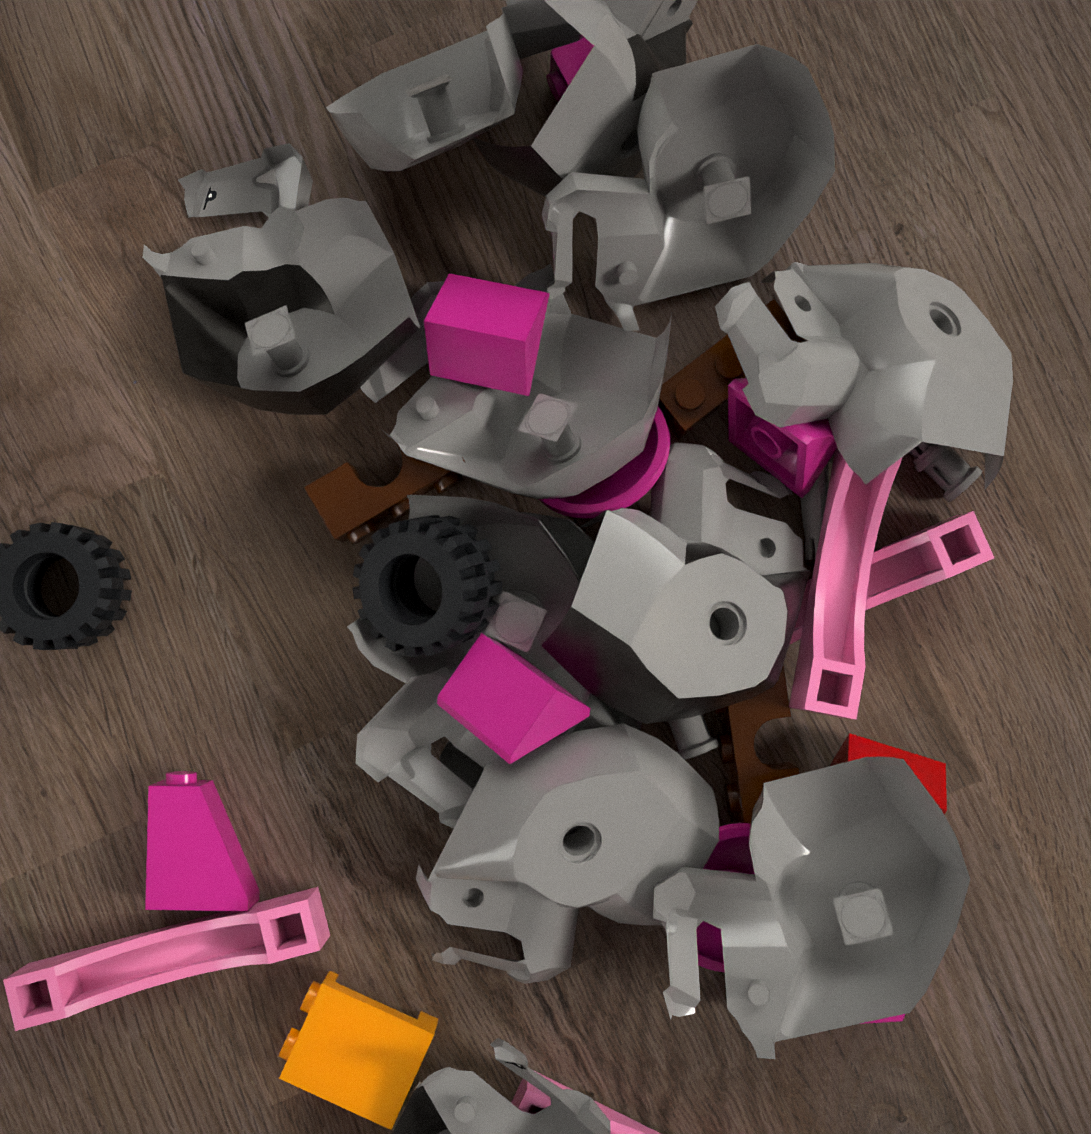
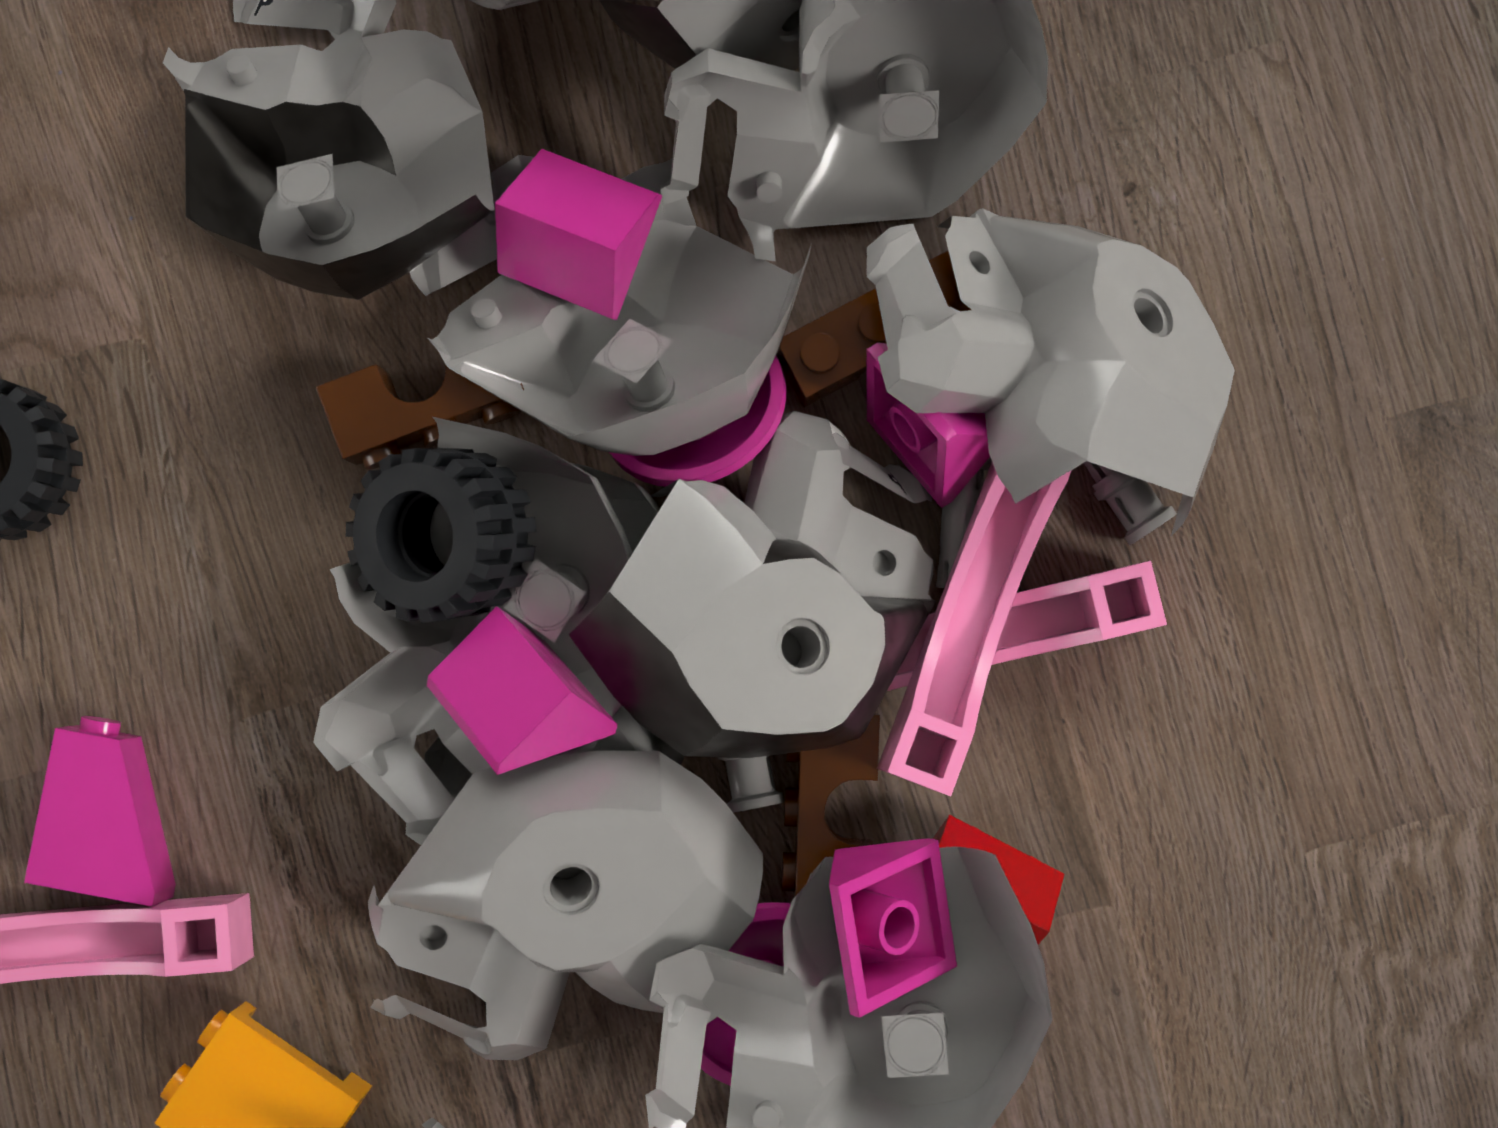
camera: 10 degrees right, 0 degrees up
(826, 822) = (890, 920): none -> dark pink slope

